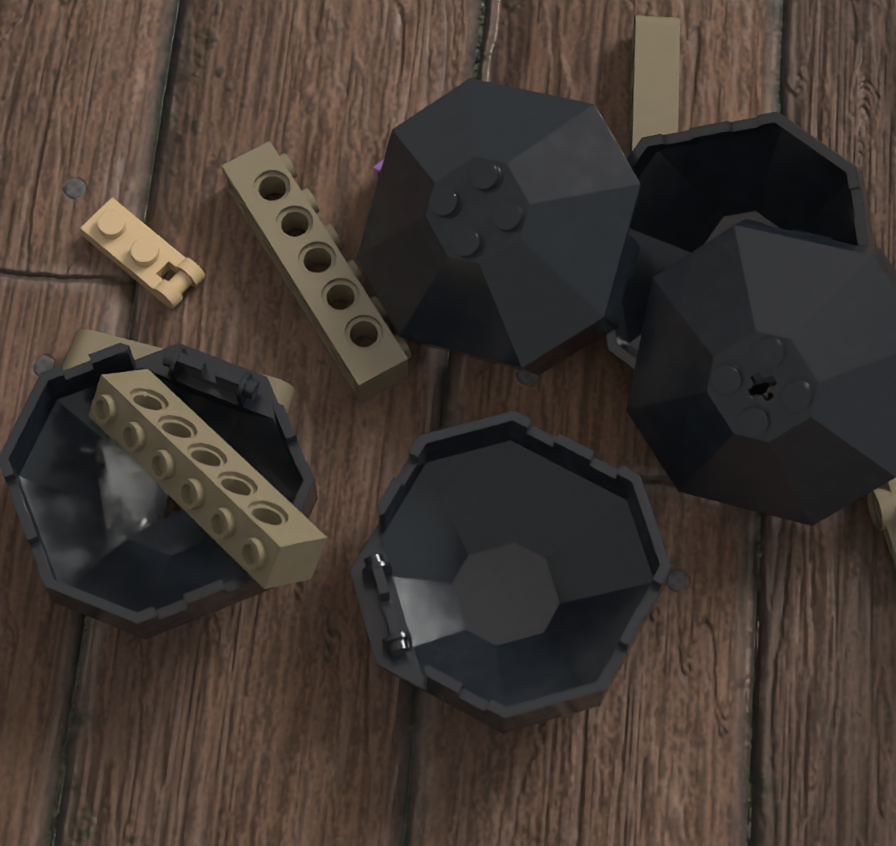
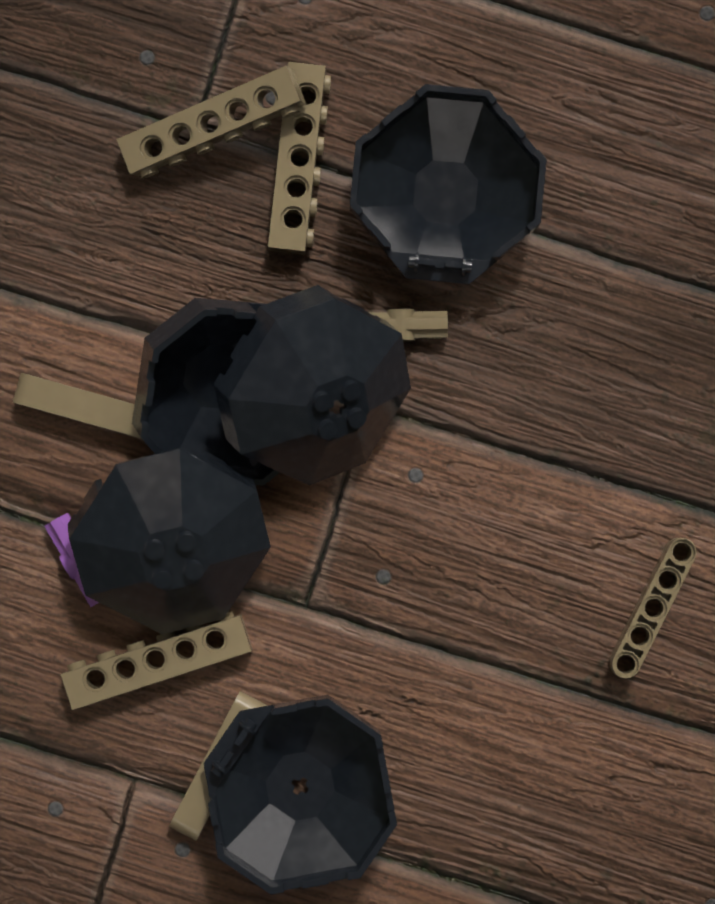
camera: 70 degrees left, 20 degrees up
(127, 492) = (293, 808): clear cylinder -> none
(141, 253) = (115, 773): tan plate -> none
(208, 478) = (312, 767): dark tan brick -> none
(509, 571) = (406, 587): black windscreen -> none

